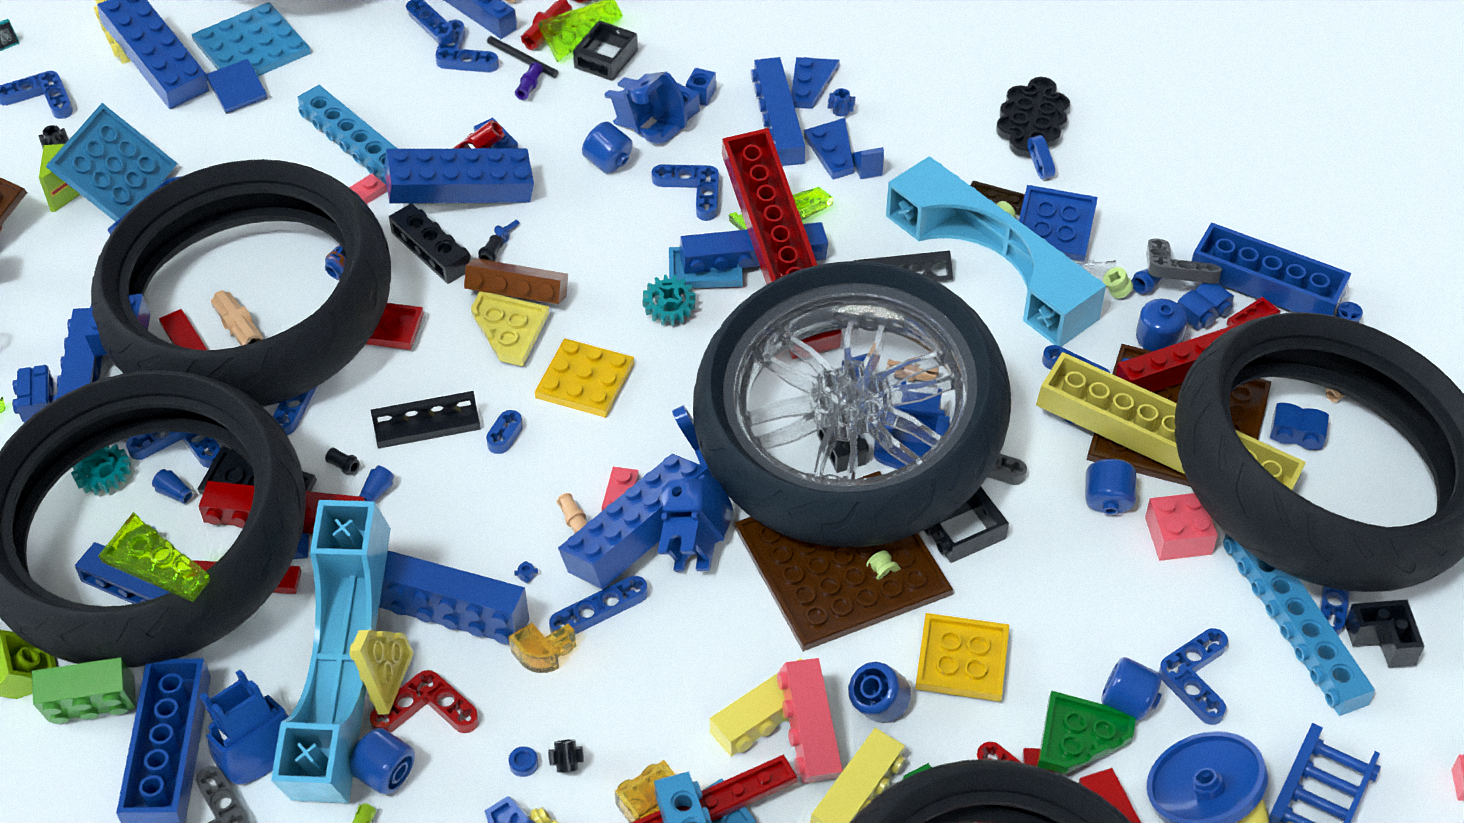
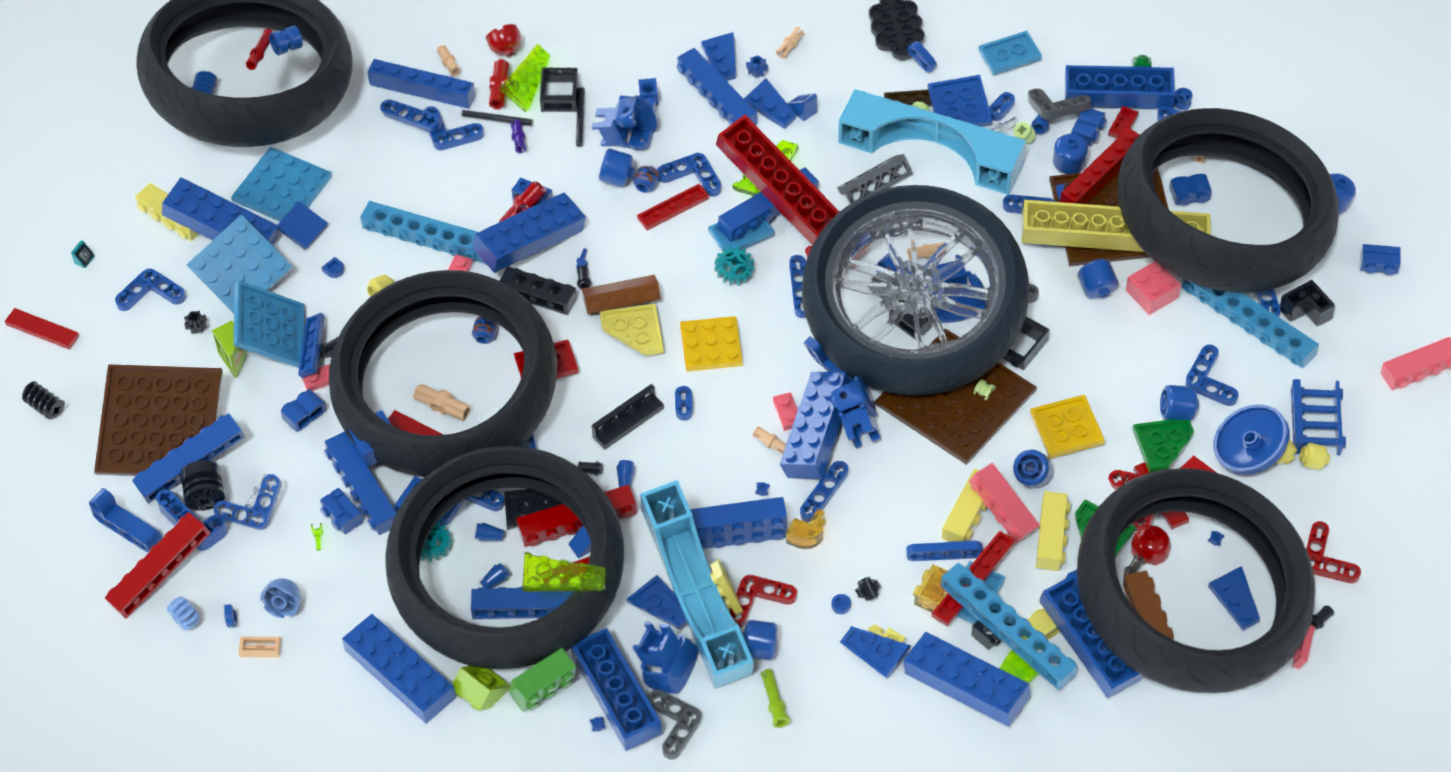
camera: 25 degrees left, 5 degrees up
(77, 270) = (303, 410): none -> blue brick
(115, 778) = (597, 724): none -> blue piece
(139, 90) = (238, 255): none -> dark azure plate
(238, 141) = (333, 268): none -> blue tile
(294, 652) = (659, 602): none -> blue wing
(600, 99) = (580, 117): none -> black bar
(635, 172) = (646, 179): none -> blue head
(646, 213) = (672, 207): none -> red tile
(697, 749) = (944, 550): none -> blue beam
(896, 91) = (790, 42): none -> light nougat pin
(1108, 245) = (1004, 108): none -> blue beam
(1153, 190) = (1010, 52): none -> dark azure plate
(1314, 251) = (1141, 61): none -> green slope

